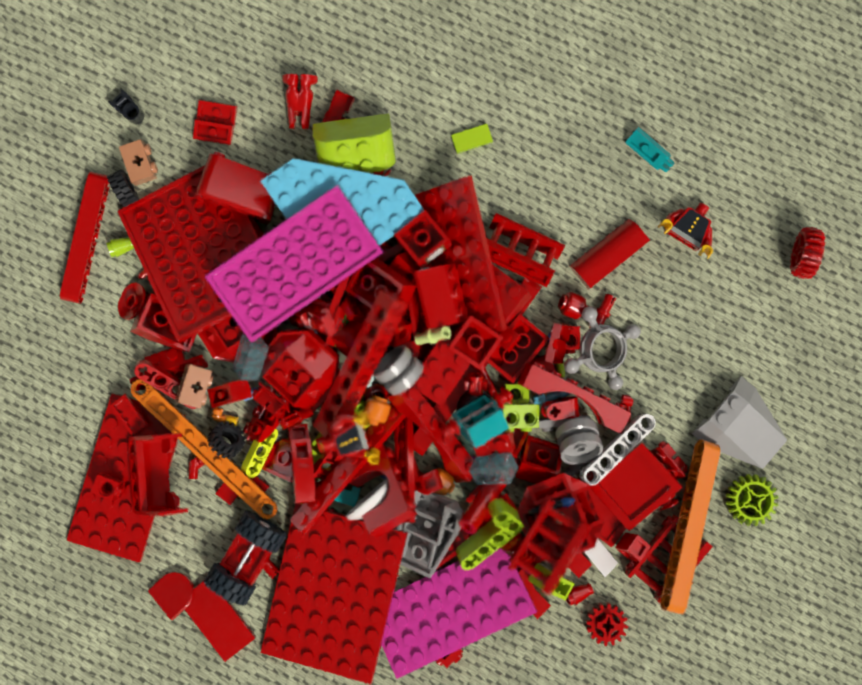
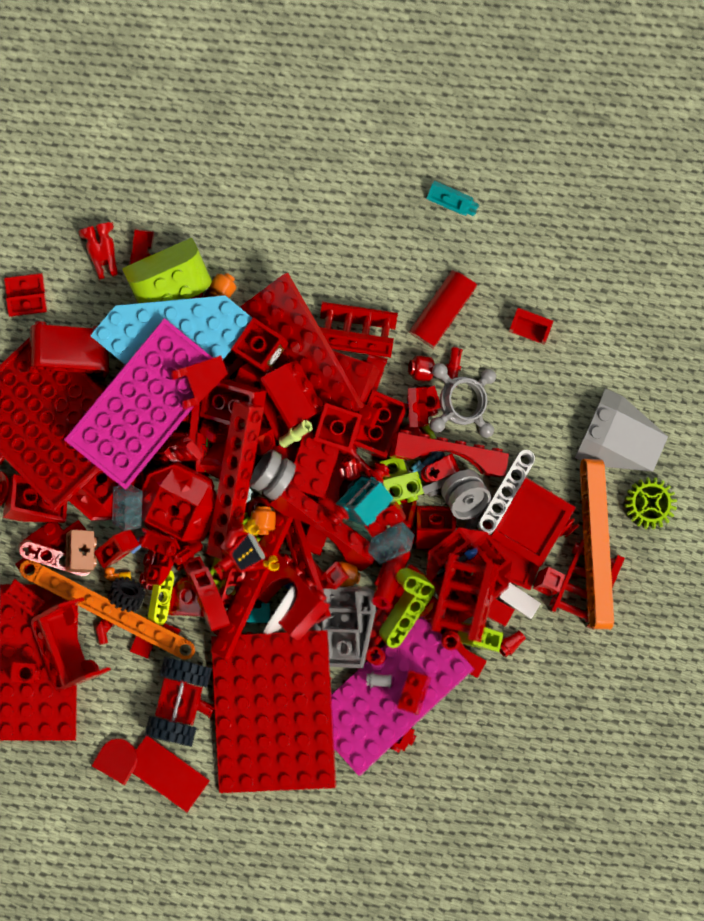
camera: 15 degrees left, 5 degrees down
(356, 256) = (202, 379): none -> red flag
(404, 169) = (222, 285): none -> orange head
(442, 595) = (379, 680): none -> light grey pin
(452, 569) = (378, 661): none -> red bush
(472, 138) = (278, 238): lime tile -> none
(472, 620) = (414, 692): none -> red brick
(522, 580) = (450, 643): none -> red cone
(617, 626) = (555, 662): red gear -> none
(628, 402) = (503, 444): red hand -> none
(674, 466) = (554, 483): red hinge -> none
(689, 295) = (531, 326): none -> red panel
(690, 228) = (512, 261): torso -> none
(807, 253) = (630, 252): red gear -> none

